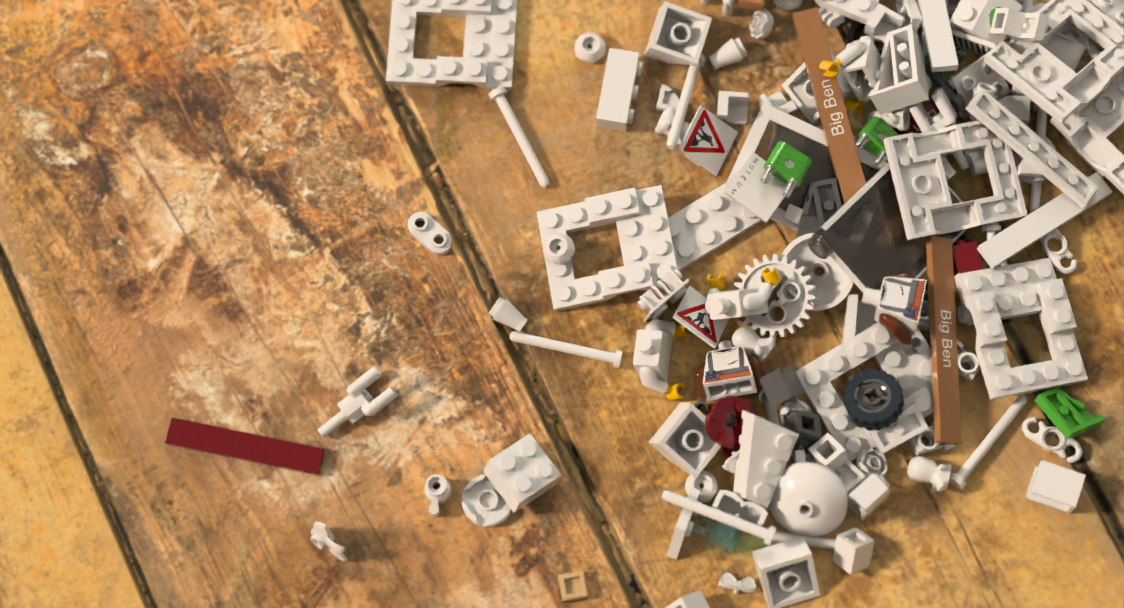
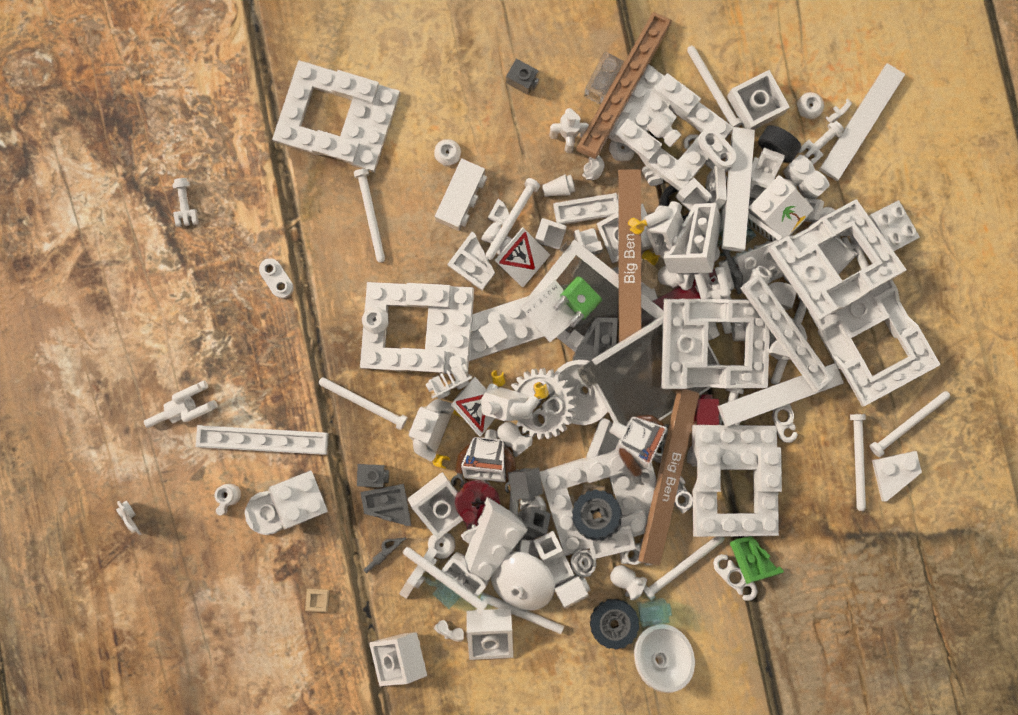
camera: 10 degrees right, 10 degrees up
(245, 446) = (83, 419): dark red tile -> none
(294, 156) = (181, 184): none -> white hinge
(460, 419) = (262, 439): none -> white tile
(505, 313) = (320, 362): white cone -> none
(600, 426) = (372, 475): none -> dark grey brick
(626, 454) = (387, 503): none -> dark grey wing
(634, 517) = (381, 556): none -> dark grey hand
(652, 162) = (472, 263): none -> white wing
(677, 35) = (521, 161): white slope -> none
(697, 231) = (493, 333): none -> white tile
(765, 71) = (586, 209): none -> white tile
(853, 550) = (548, 629): white panel -> none
(872, 138) = (659, 289): bright green piece -> none
(938, 515) = (620, 635): none -> black wheel
(969, 500) = (654, 612): none -> clear light blue brick
(996, 546) = (674, 657): none -> white dish
(1019, 25) = (806, 227): white brick -> none
(1055, 486) = (726, 619): white piece -> none

